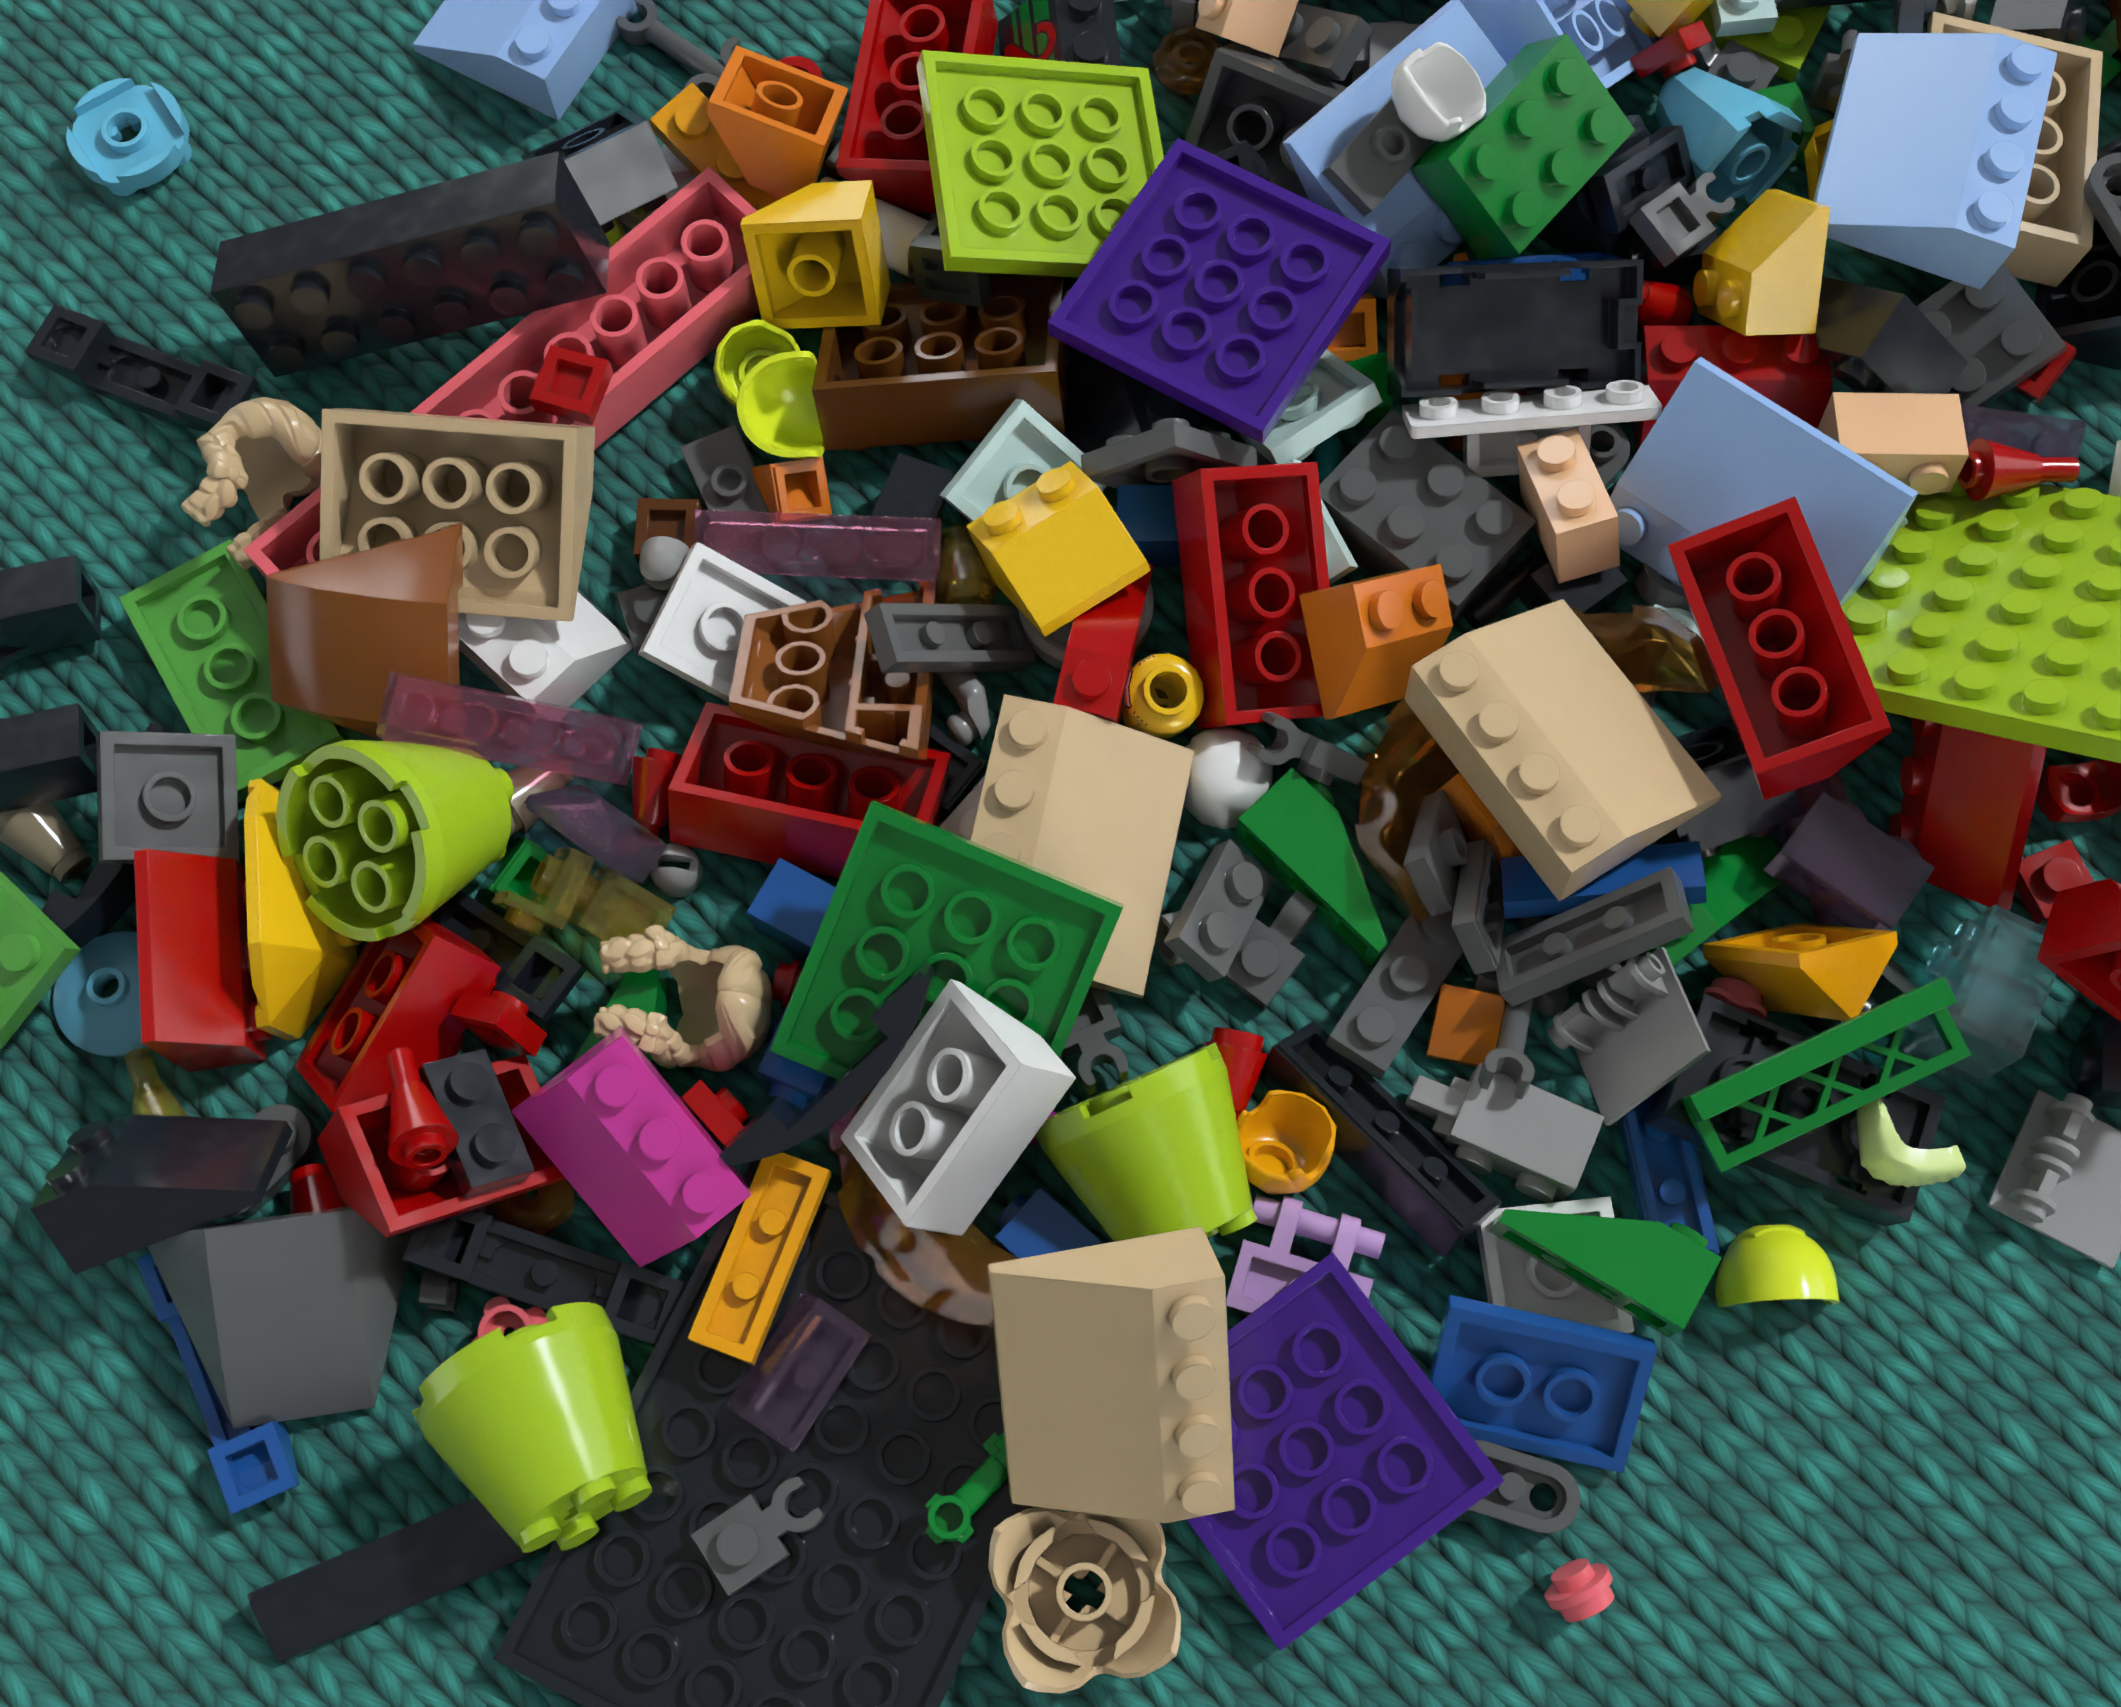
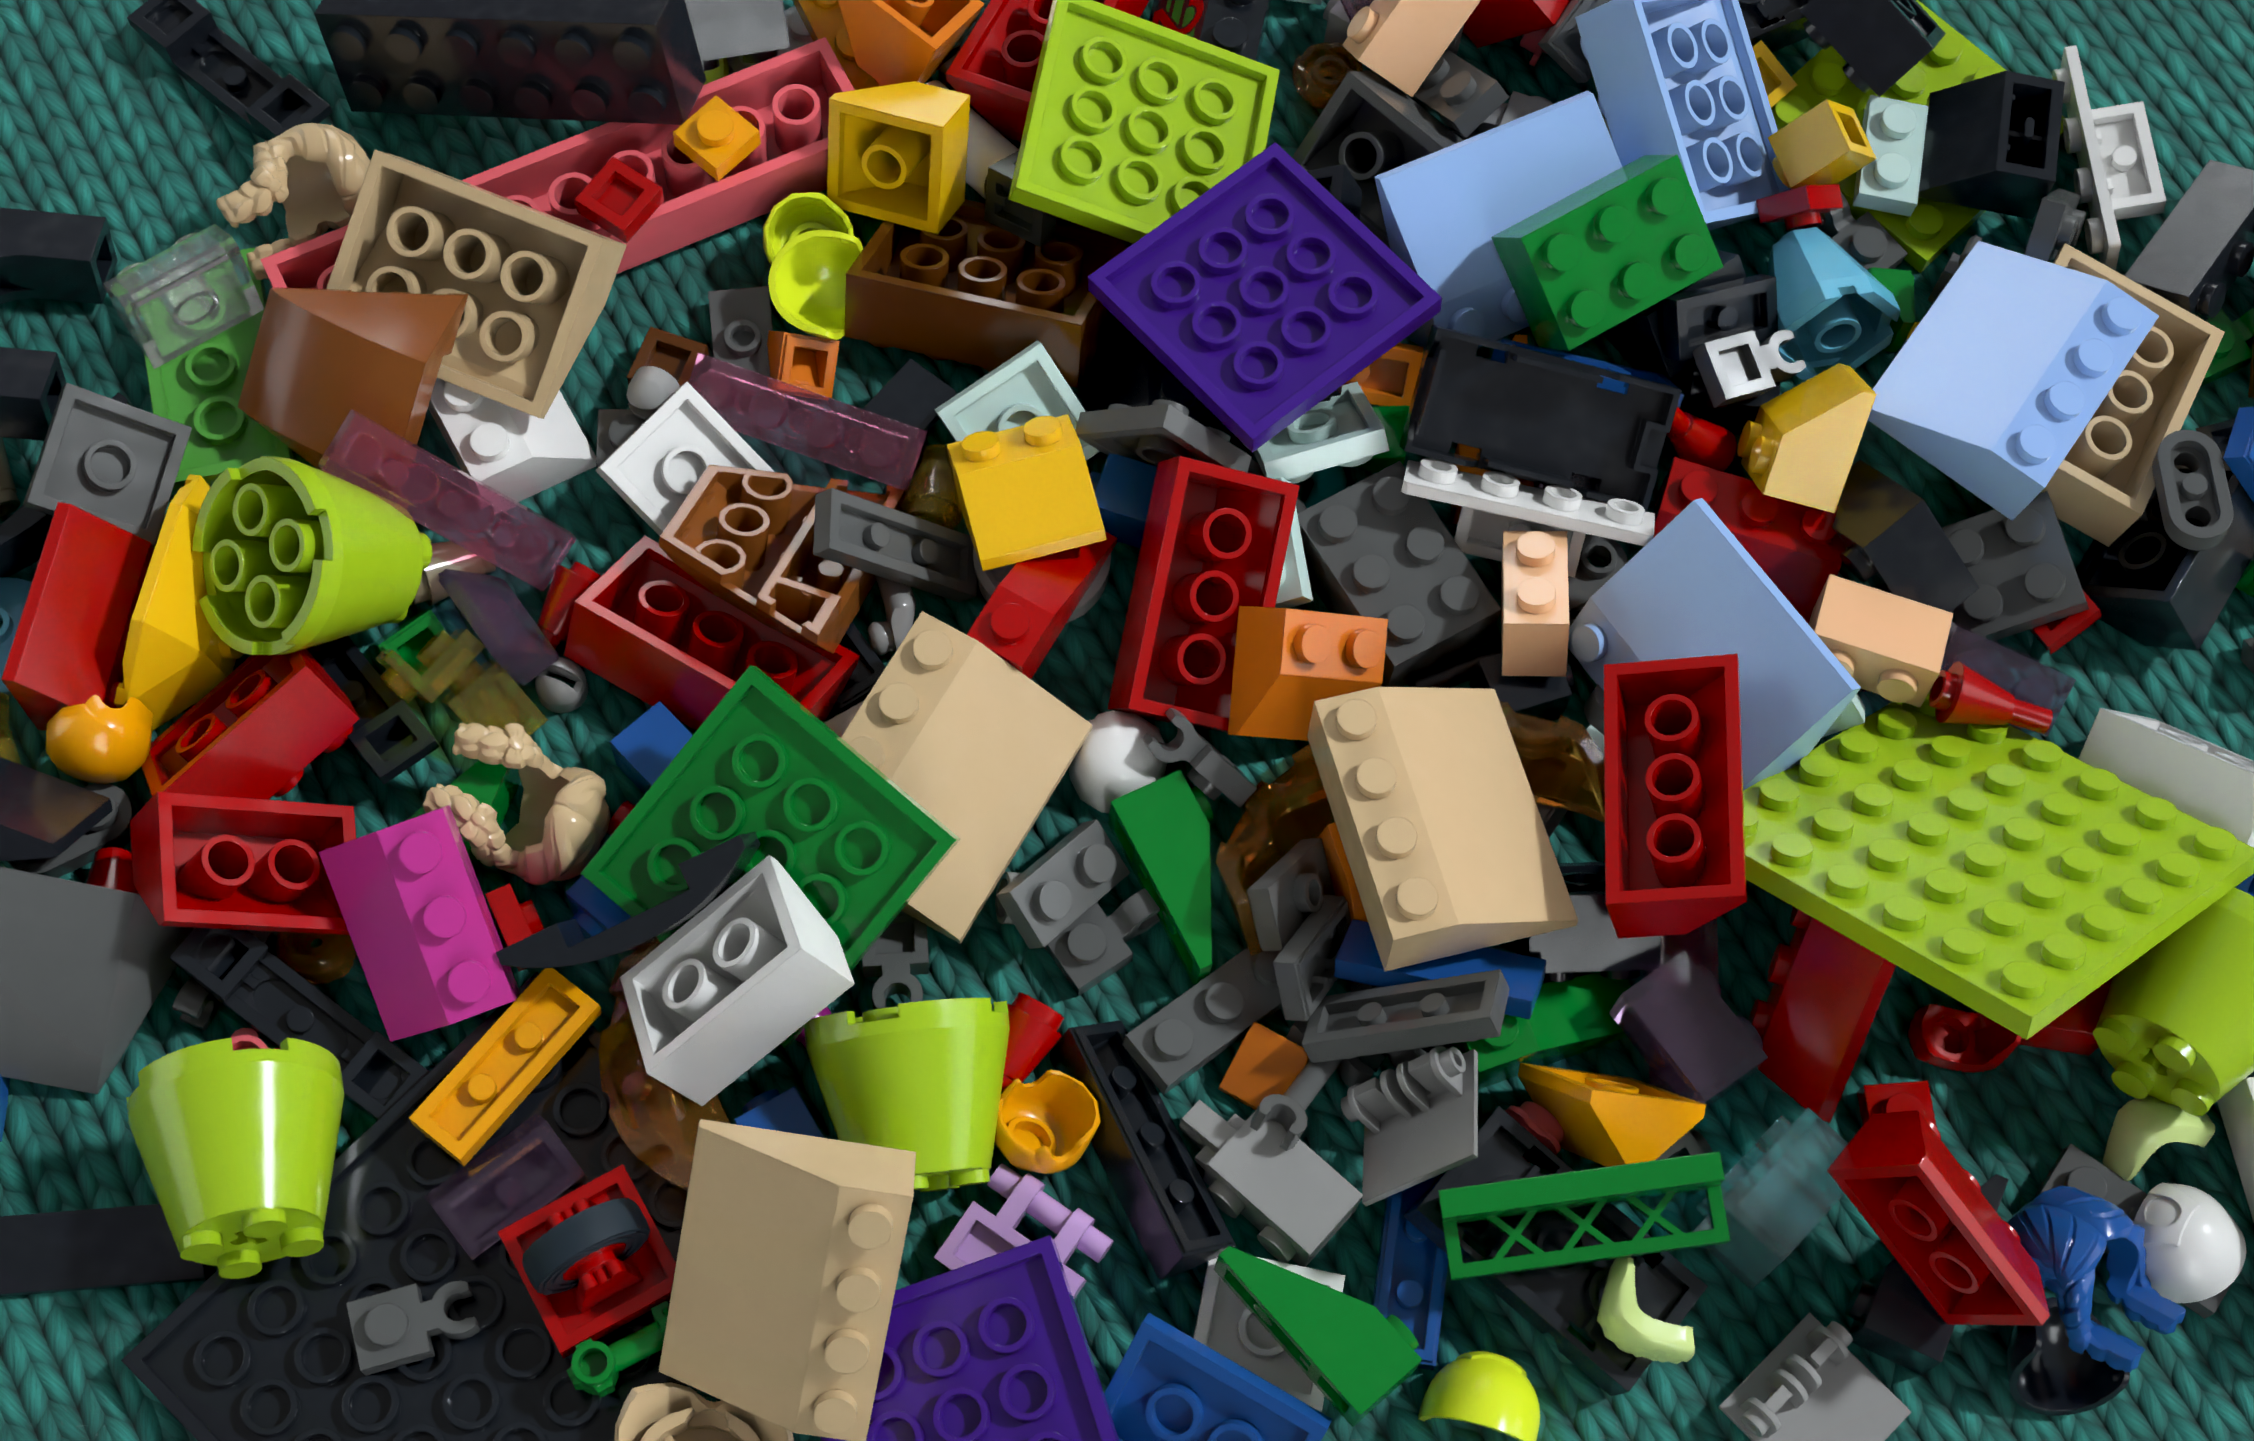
camera: 10 degrees right, 5 degrees down
(181, 606) = (185, 294): none -> clear slope
(255, 1068) = (100, 741): none -> light orange hair
(418, 1126) = (225, 833): red cone -> none
(489, 1142) = (280, 850): black plate -> none
(499, 1021) = (339, 767): red plate -> none
(641, 296) = (716, 138): none -> light orange plate
(910, 1416) = (591, 1260): none -> red plate
(1179, 691) = (1085, 644): yellow head -> none
(1375, 159) = (1470, 212): dark grey plate -> none
(1437, 93) = (1533, 173): white hair -> none

